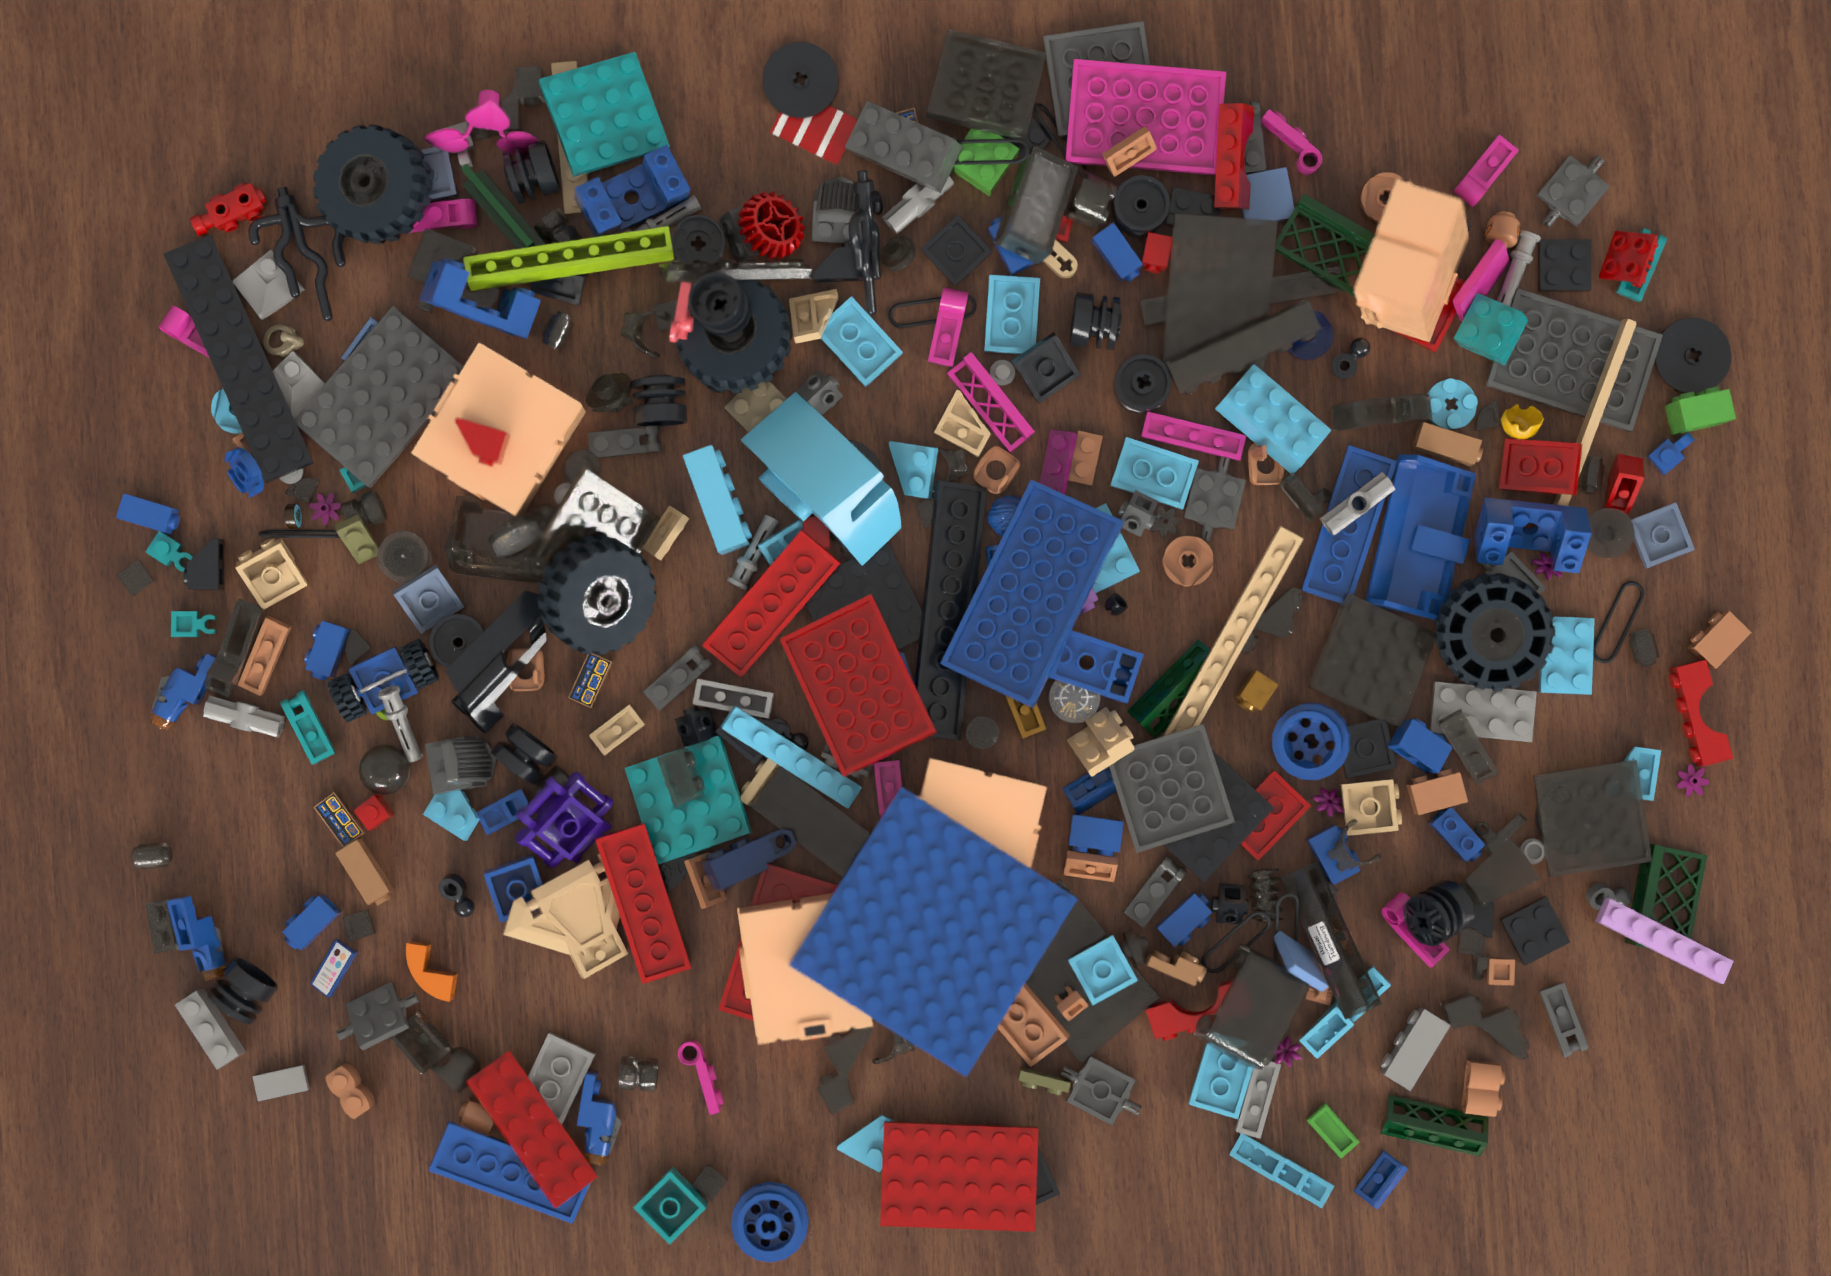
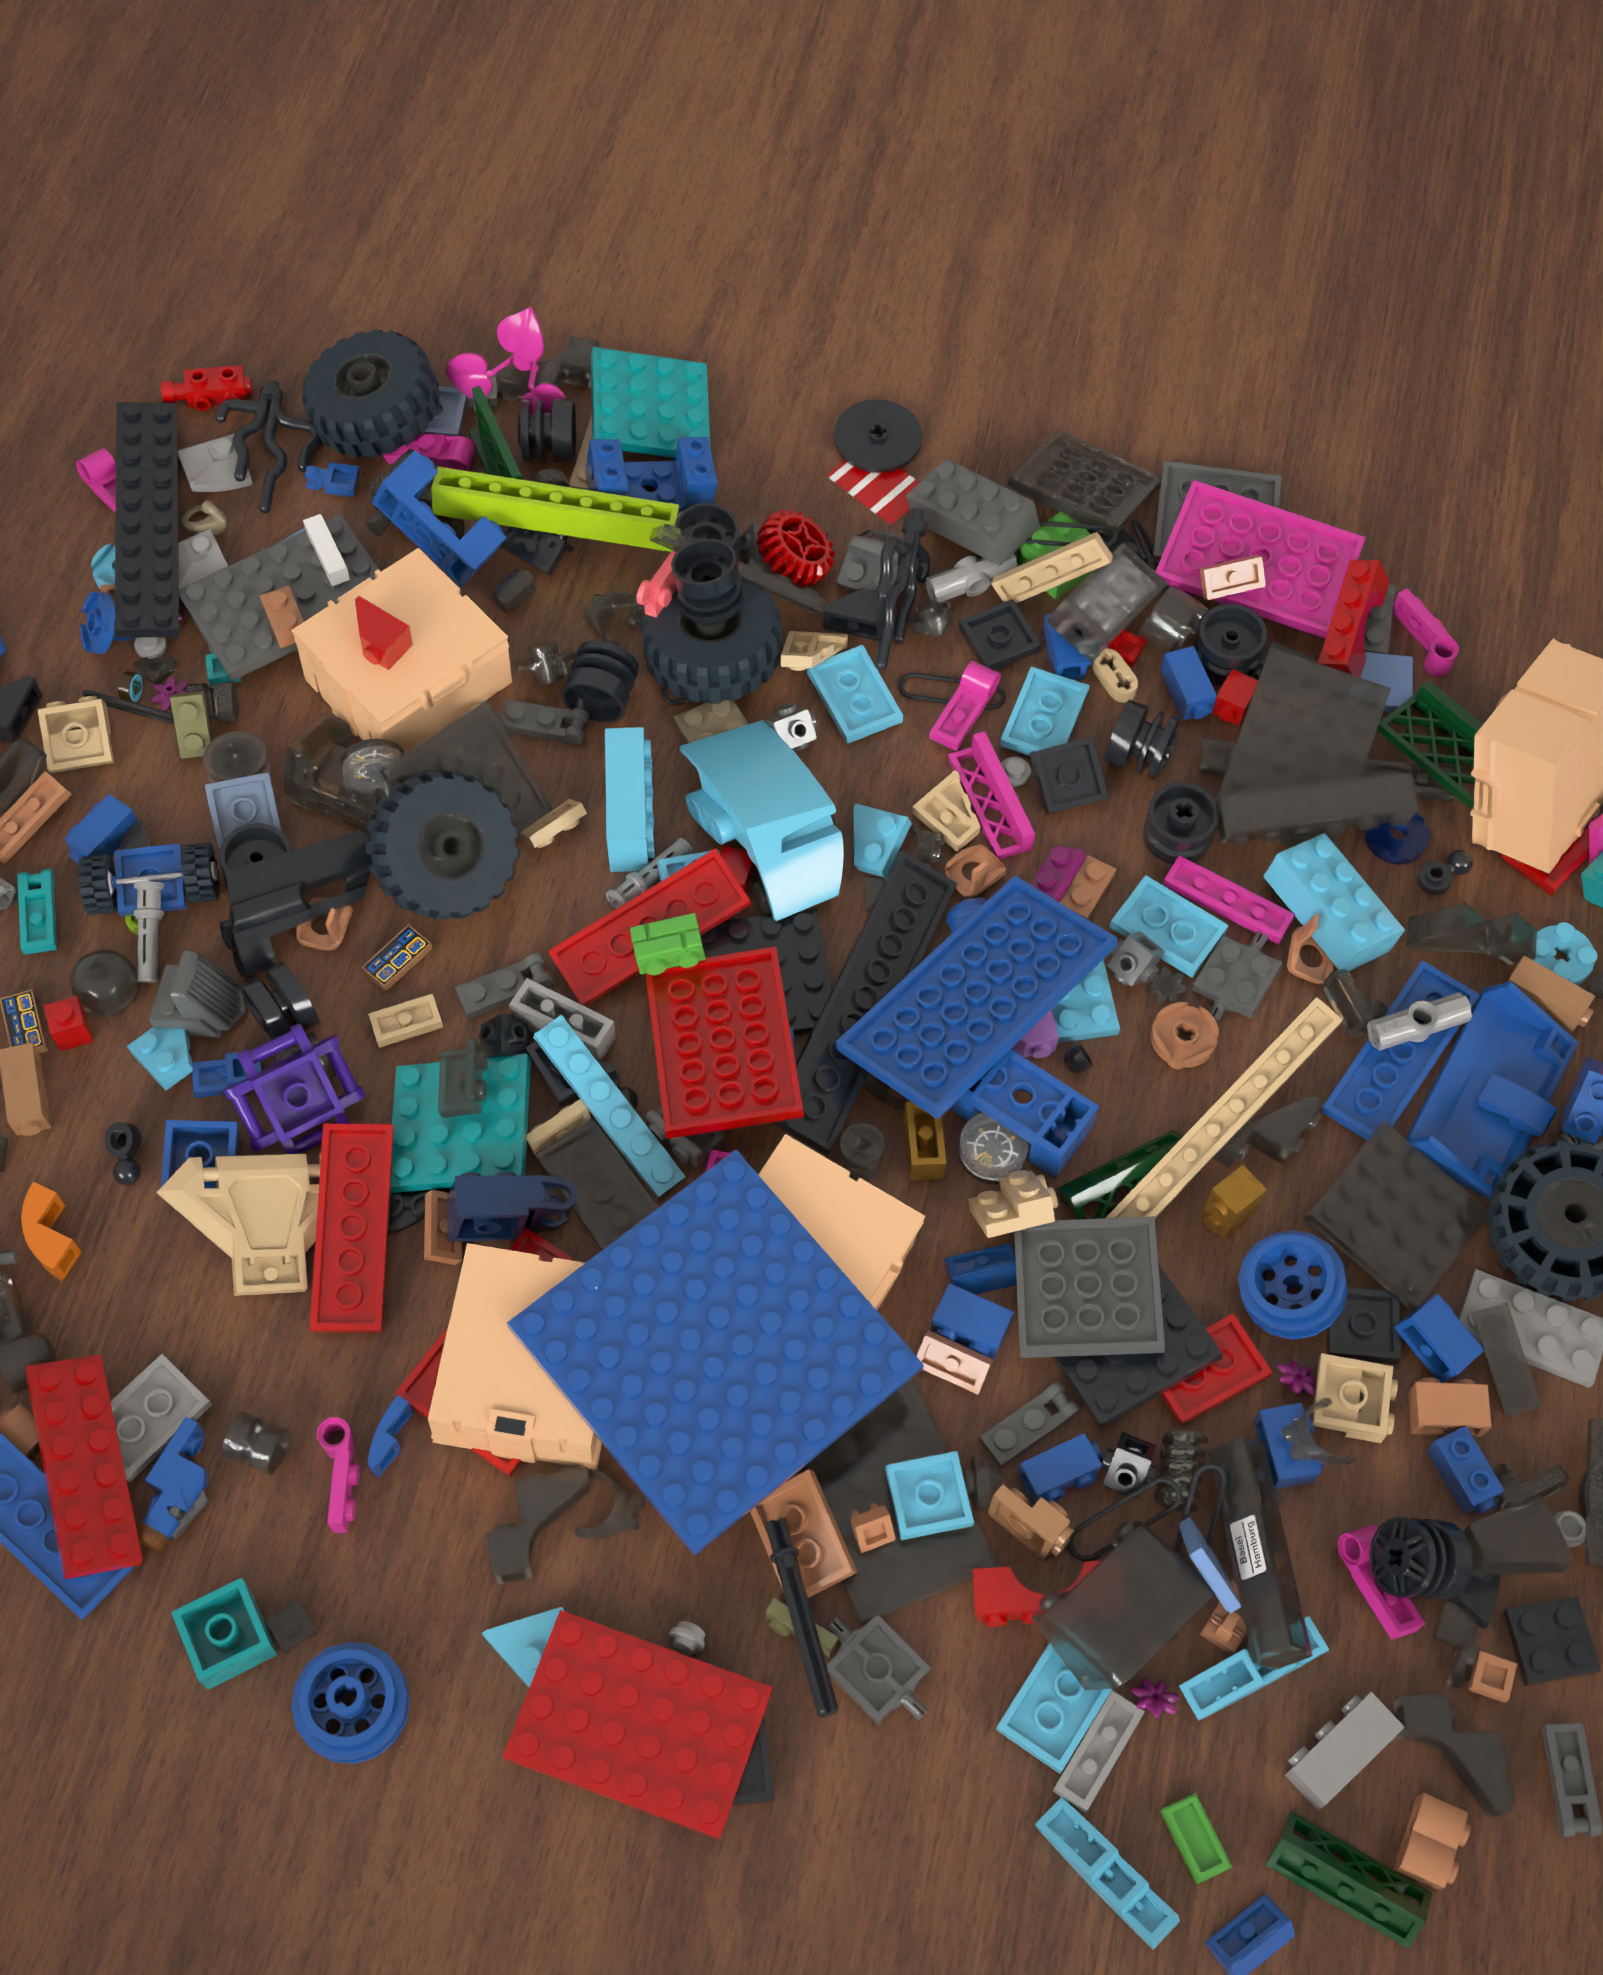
camera: 20 degrees right, 25 degrees down
(375, 268) = (336, 480): none -> blue plate
(392, 425) = (282, 614): none -> nougat plate
(399, 352) = (326, 550): none -> white piece
(725, 1045) = (384, 1445): none -> blue slope
(791, 621) = (667, 944): none -> bright green brick
(971, 1110) = (687, 1638): none -> light grey plate
(984, 190) = (1052, 569): none -> tan plate
(1043, 1079) = (812, 1655): none -> black axle

